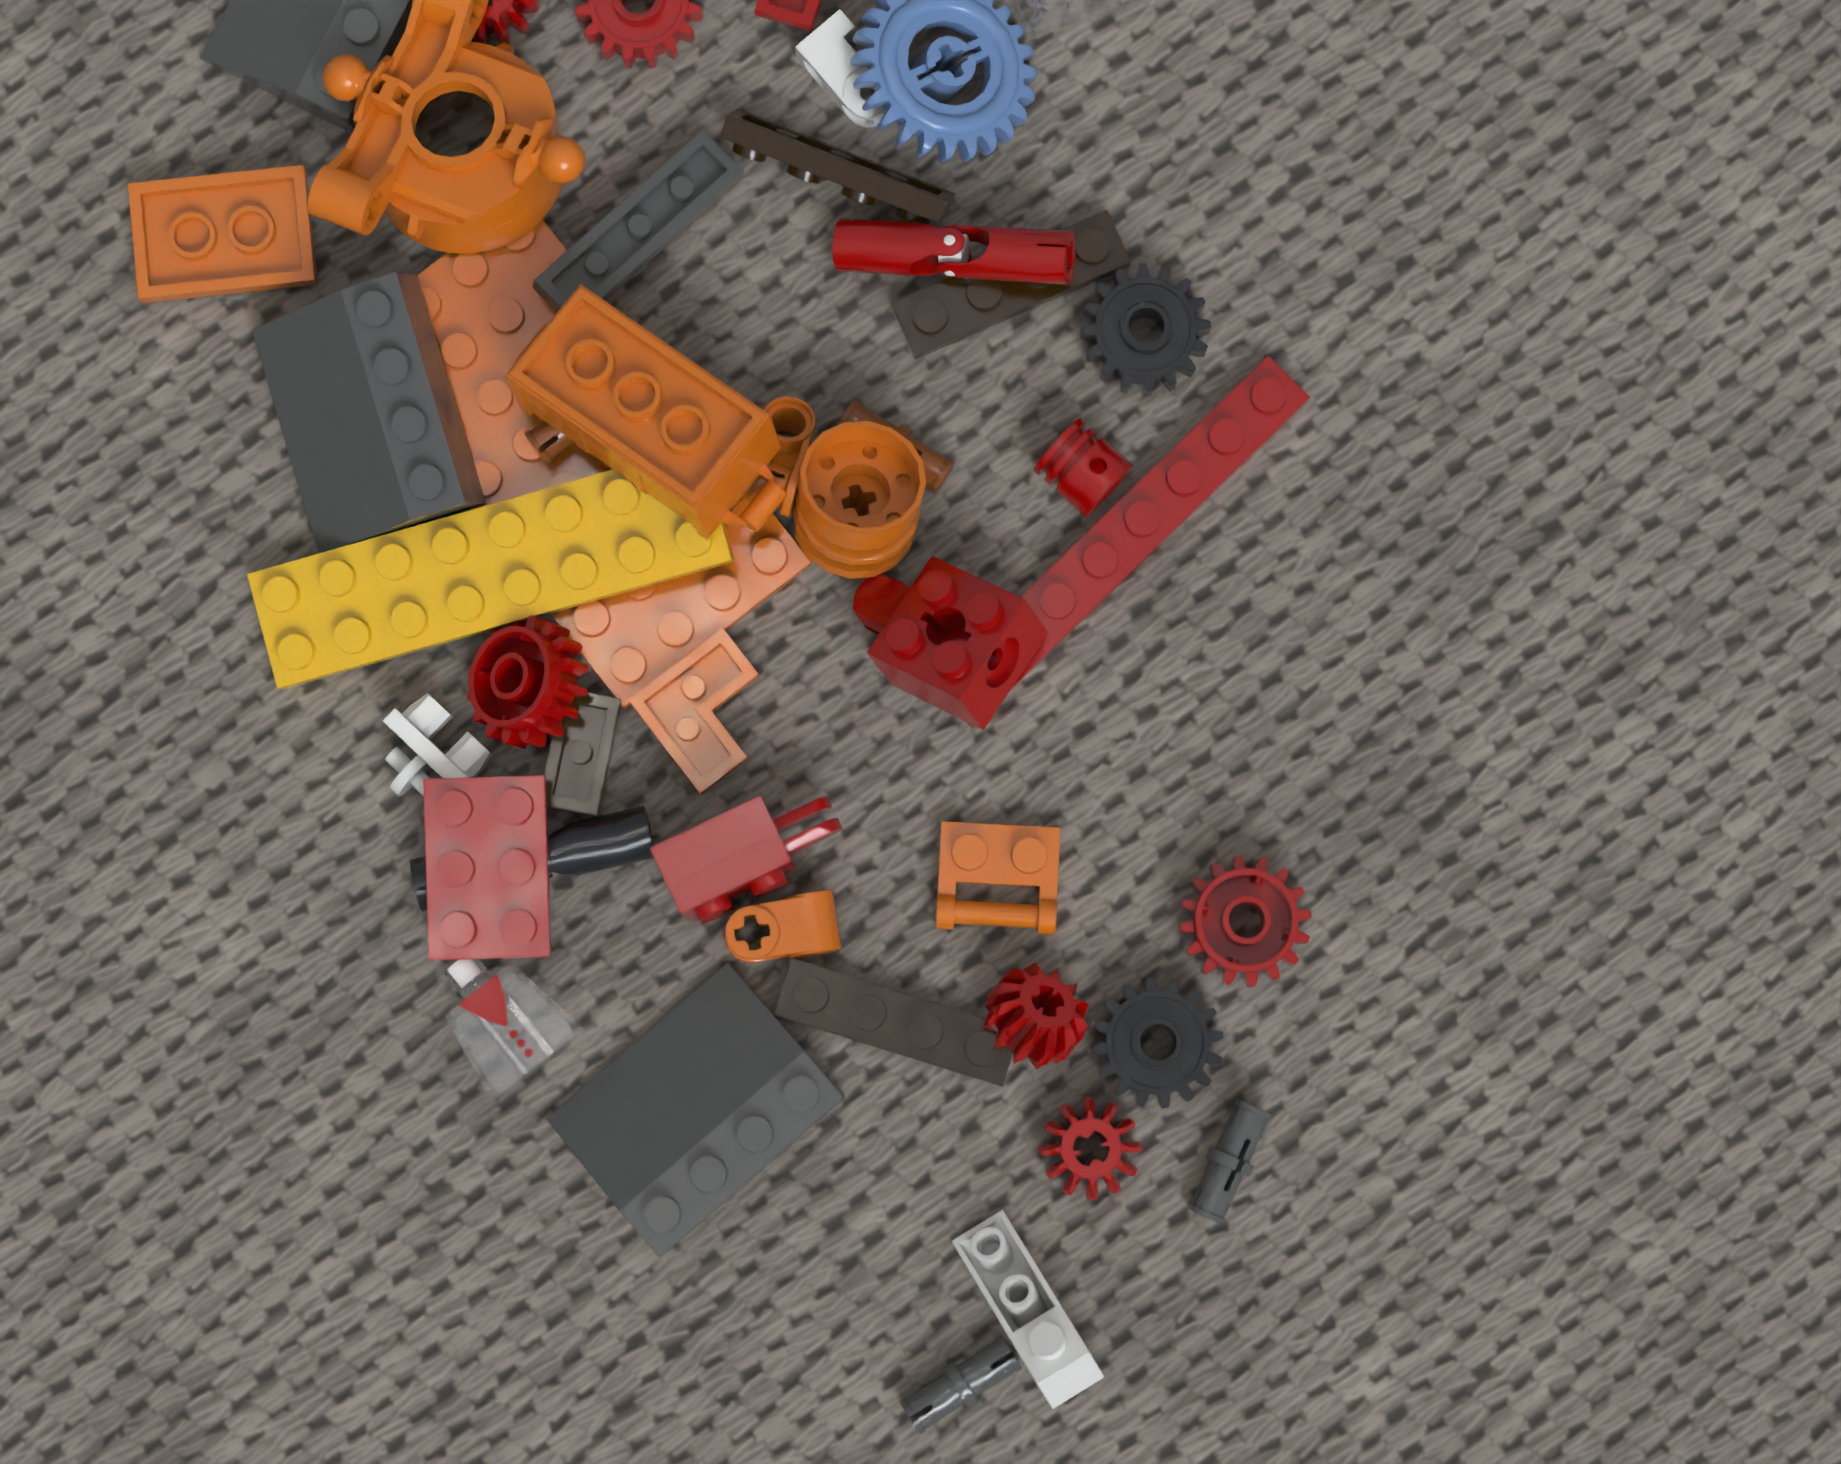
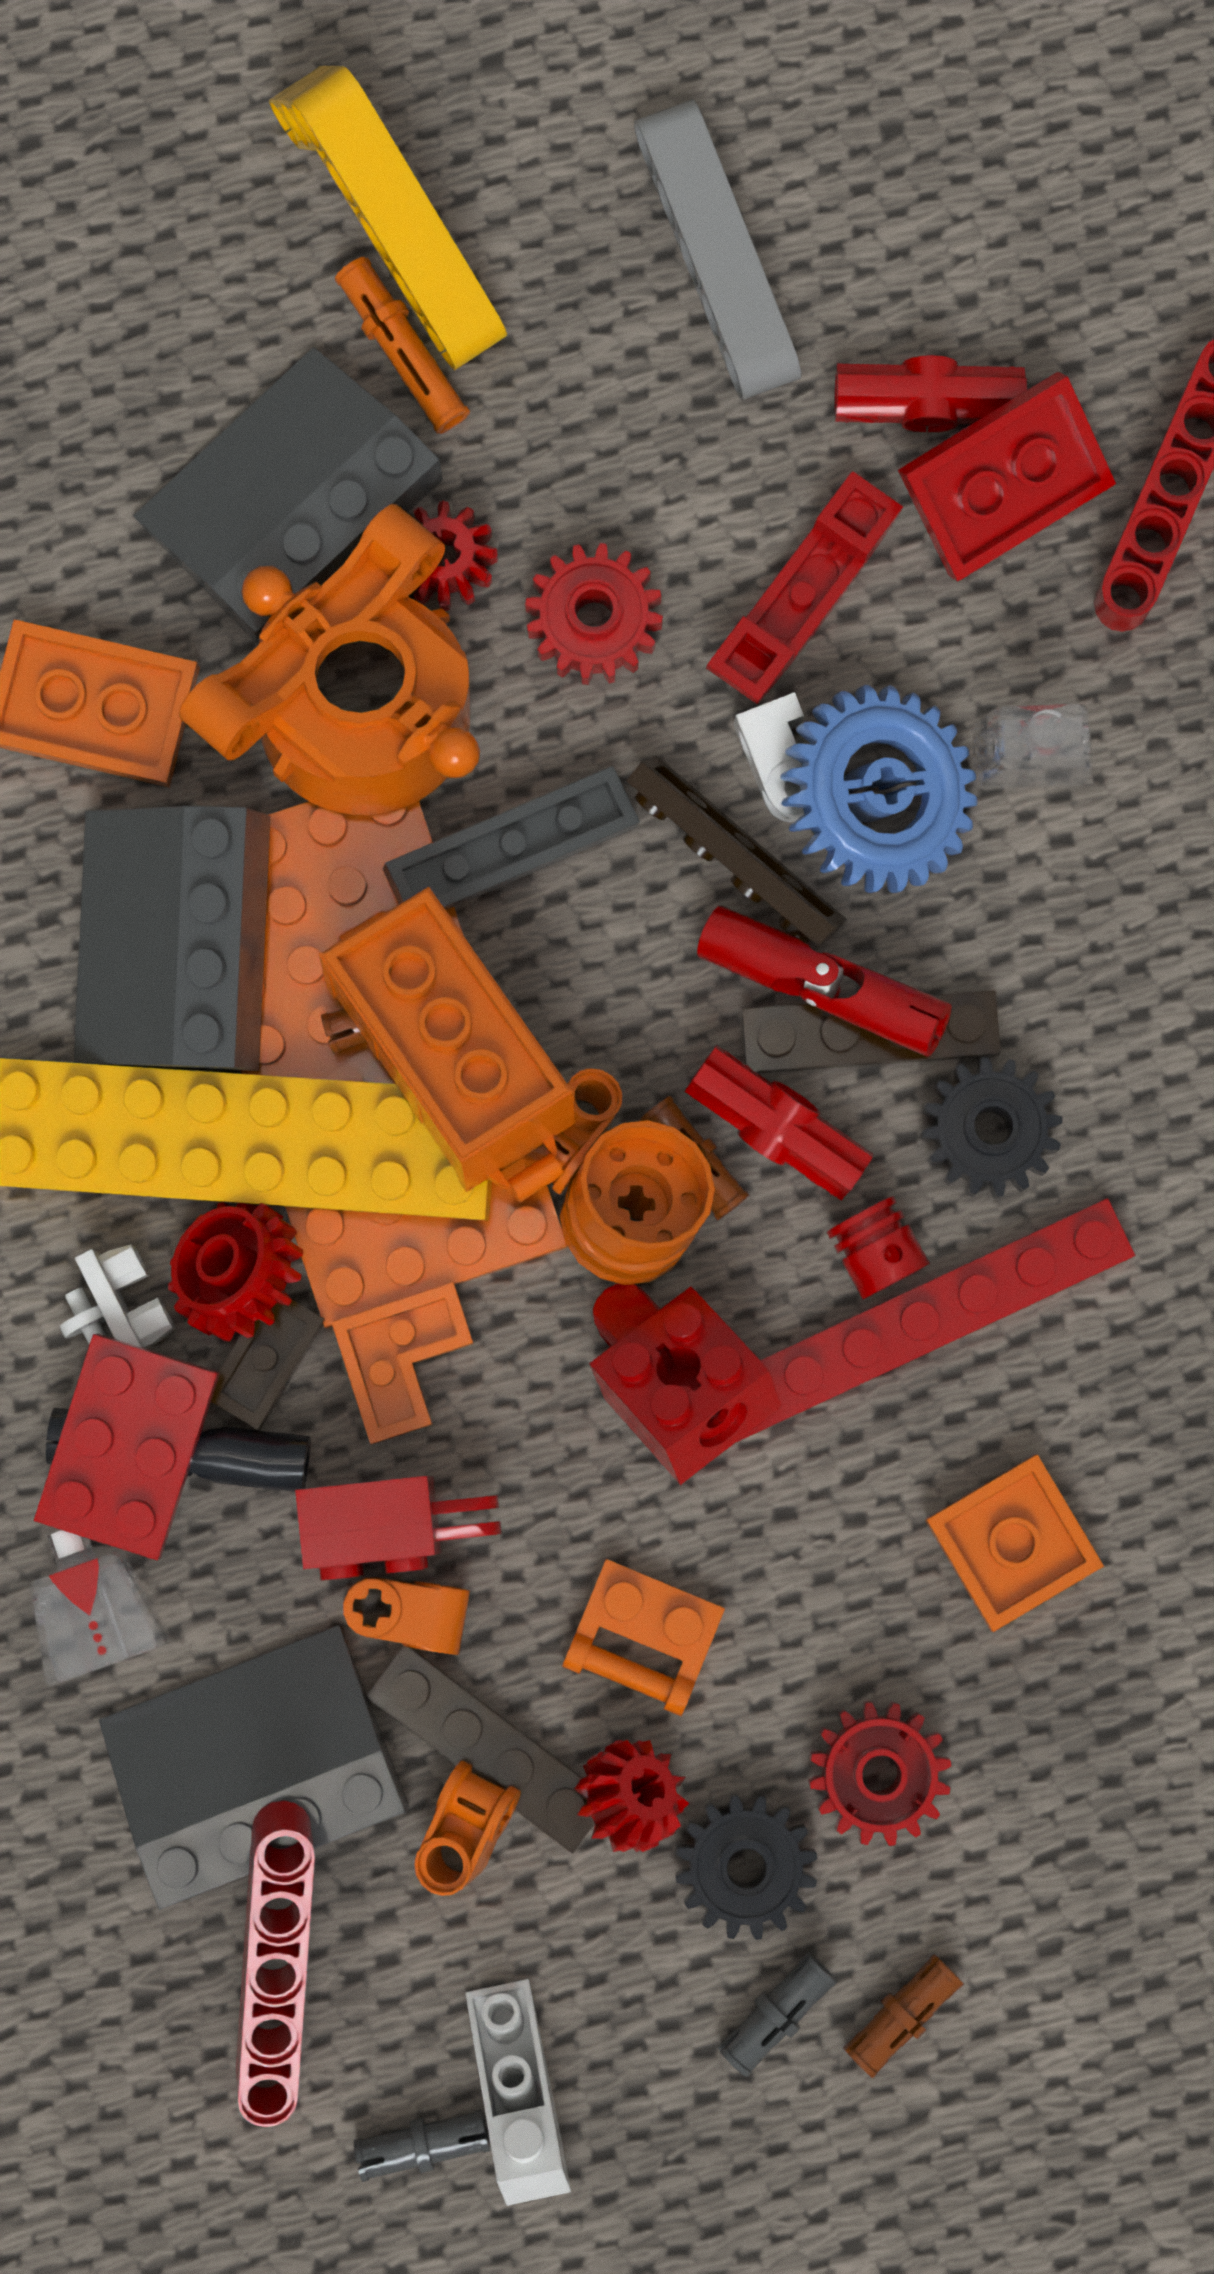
camera: 20 degrees right, 0 degrees up
(794, 1288) = (276, 1992): none -> beam
(904, 1085) = (469, 1820): none -> orange piece
(958, 389) = (779, 1123): none -> red piece
(1095, 1167) = (638, 1973): red gear -> none
(1291, 682) = (1014, 1543): none -> orange plate
(1339, 1123) = (903, 2016): none -> dark orange pin

